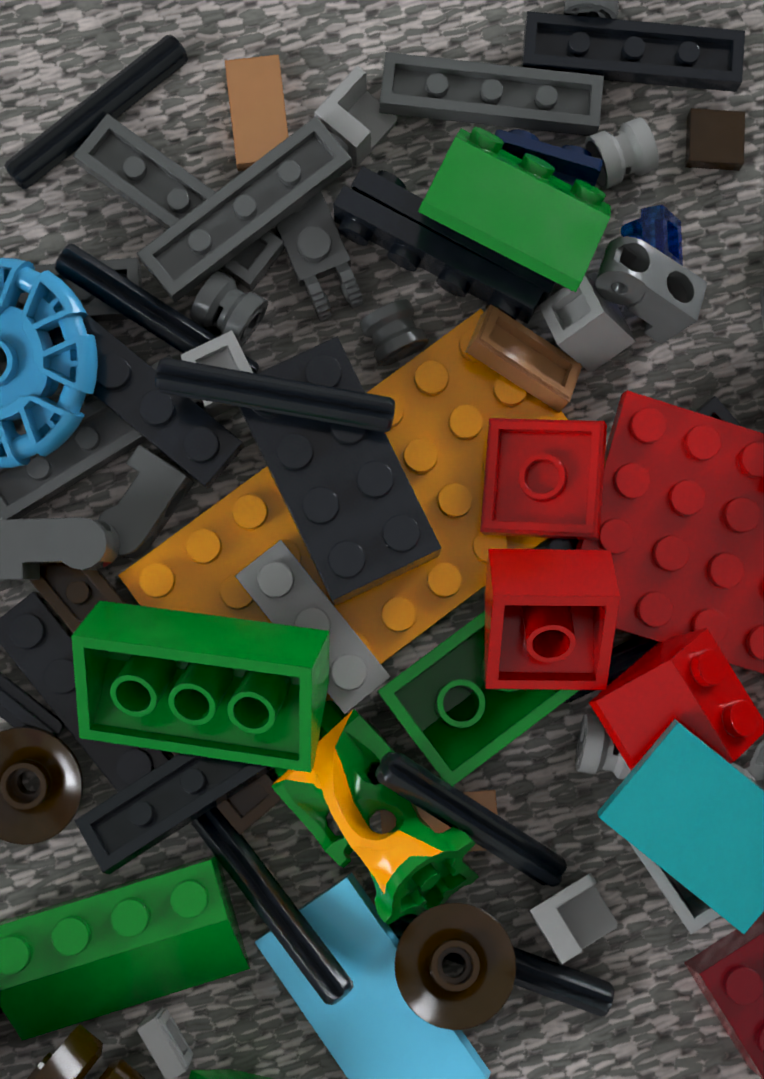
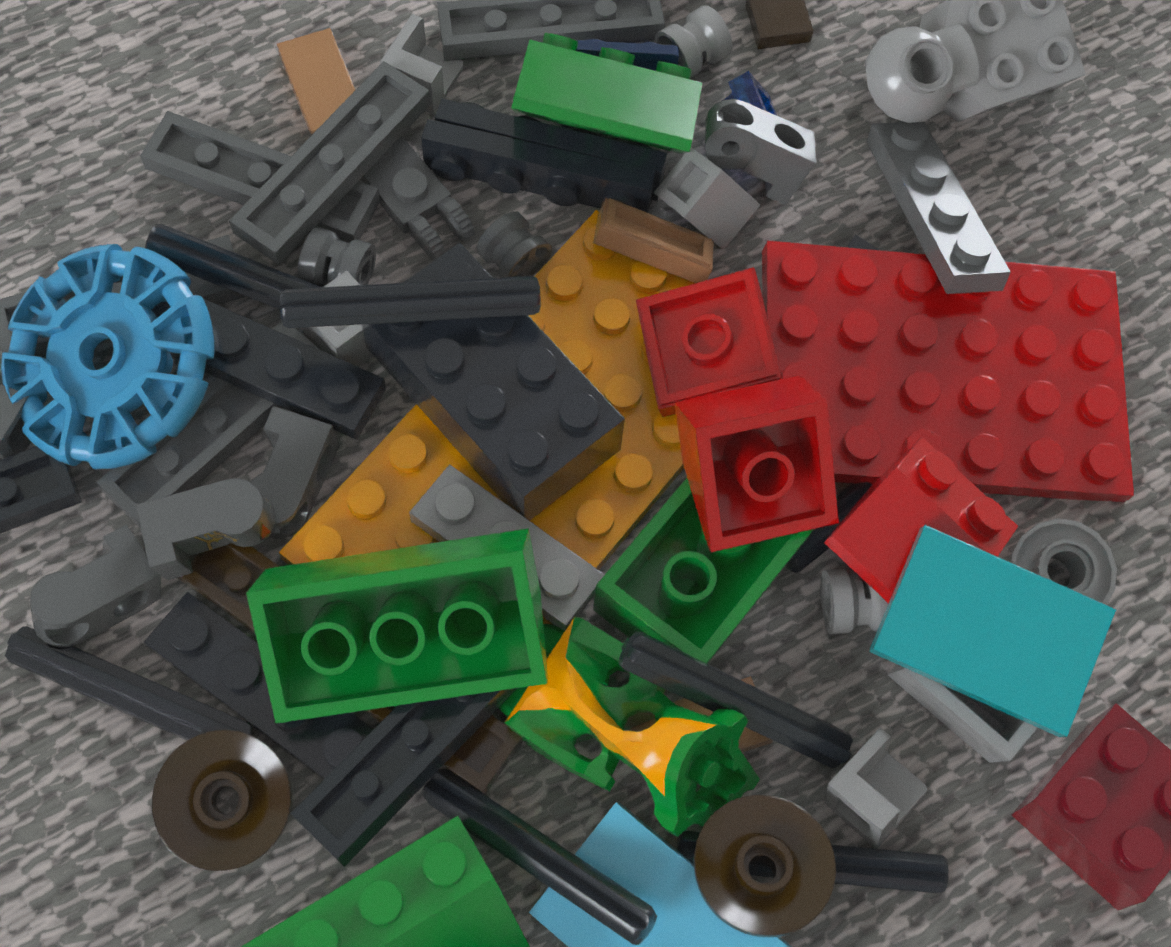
camera: 15 degrees left, 15 degrees down
(111, 98) = (174, 95): black axle -> none

